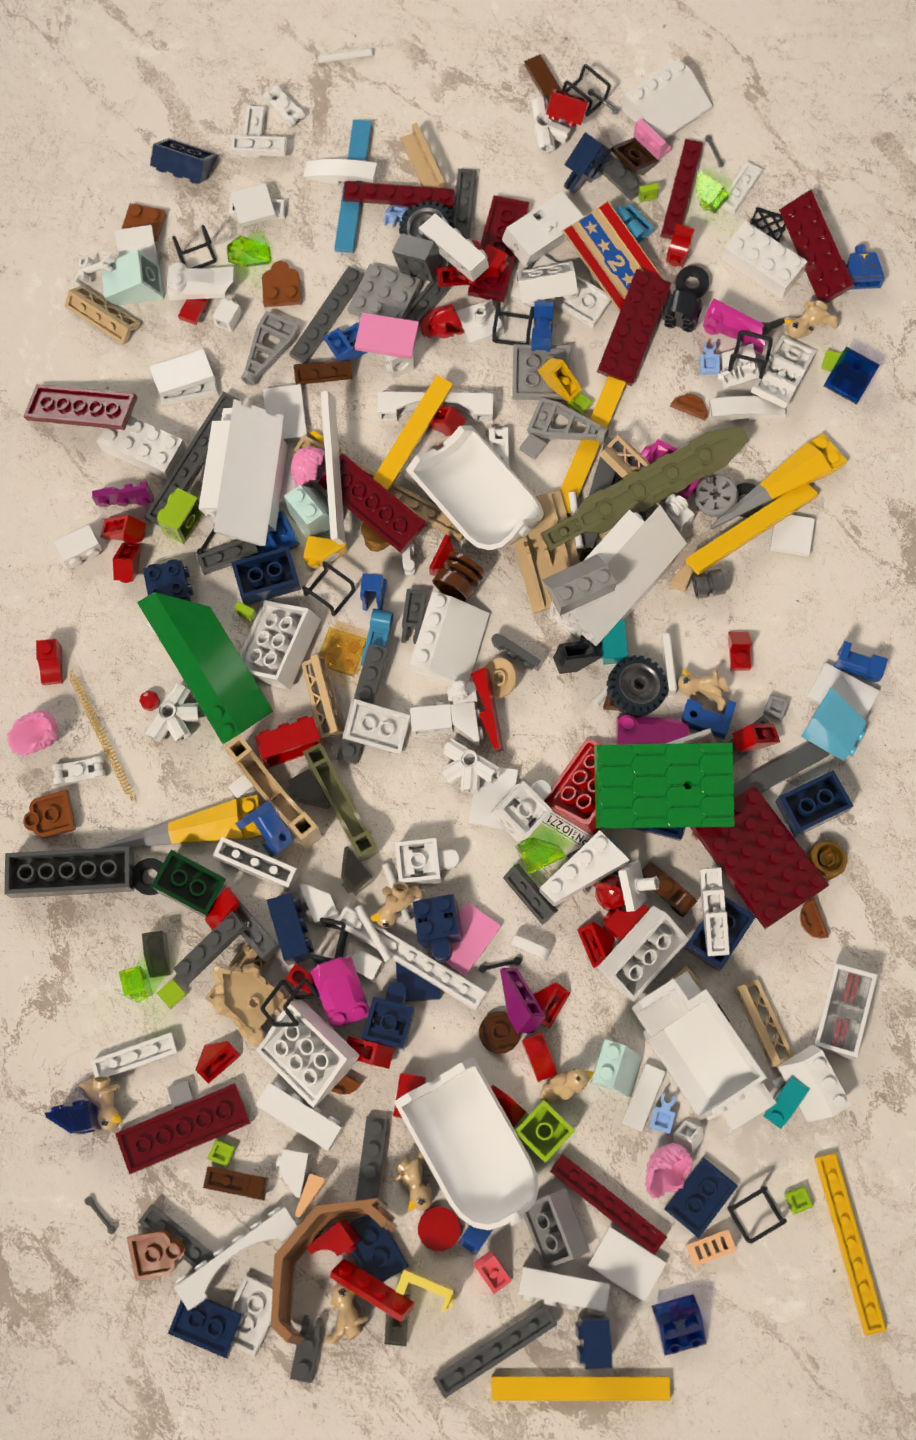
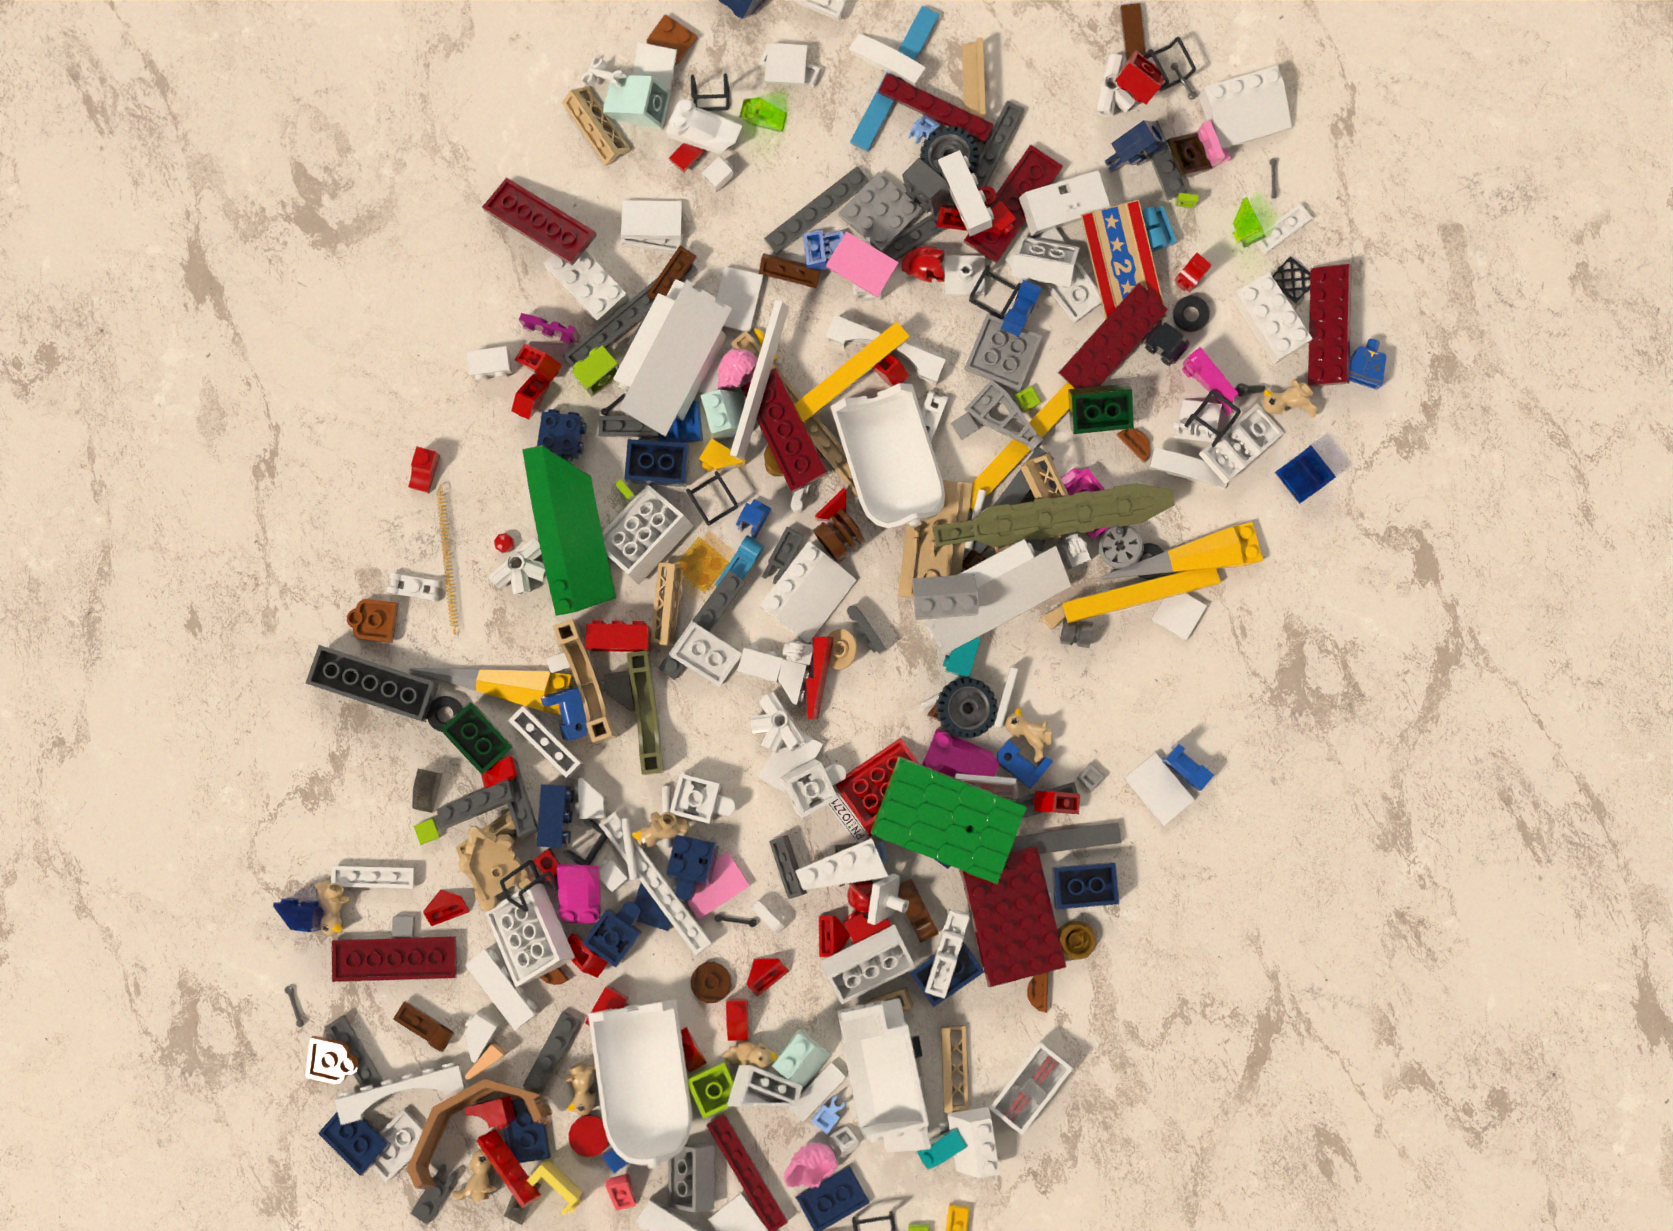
camera: 20 degrees right, 10 degrees up
(33, 732) = (383, 536): bright pink piece -> none
(135, 984) = (396, 813): clear neon green brick -> none
(220, 399) = (675, 269): none -> reddish brown tile
(221, 1153) = (420, 993): lime tile -> none
(277, 327) = (762, 206): light grey plate -> none
(281, 286) = (782, 161): dark orange plate -> none
(353, 873) = (633, 784): clear smoke slope -> none
(520, 1002) = (739, 965): magenta slope -> none
(538, 853) = (810, 833): clear neon green slope -> none
(560, 378) = (1016, 370): yellow slope -> none
(575, 656) = (920, 656): black slope -> none
(591, 1110) = (761, 1088): none -> white wedge
(648, 384) = (1101, 408): none -> dark green brick
(682, 187) = (1223, 207): dark red plate -> none
(709, 361) = (1172, 405): light blue plate -> none
(739, 651) = (1079, 708): red slope -> none
(830, 360) = (1293, 448): lime tile -> none
(835, 726) = (1136, 820): medium azure slope -> none

